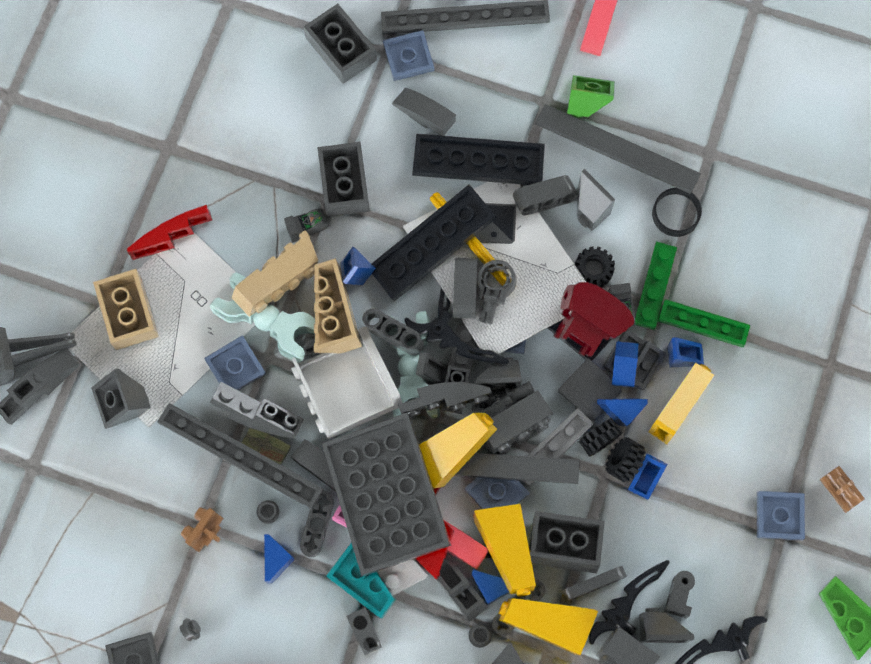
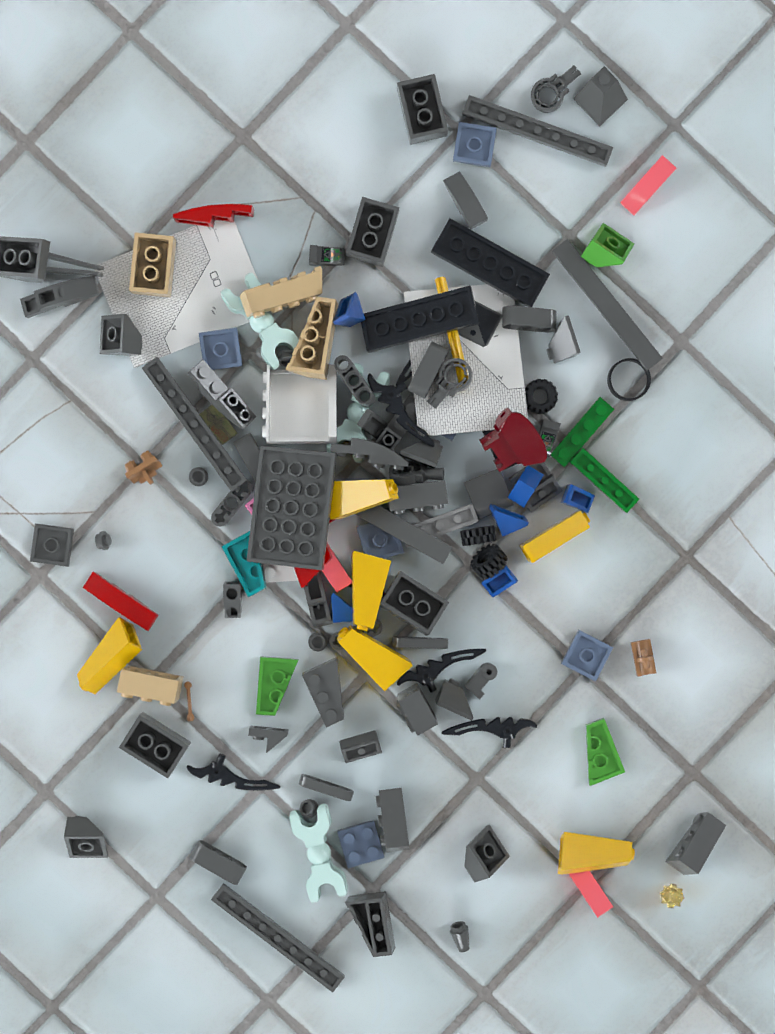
camera: 25 degrees right, 15 degrees up
(276, 559) = (189, 515): blue slope -> none

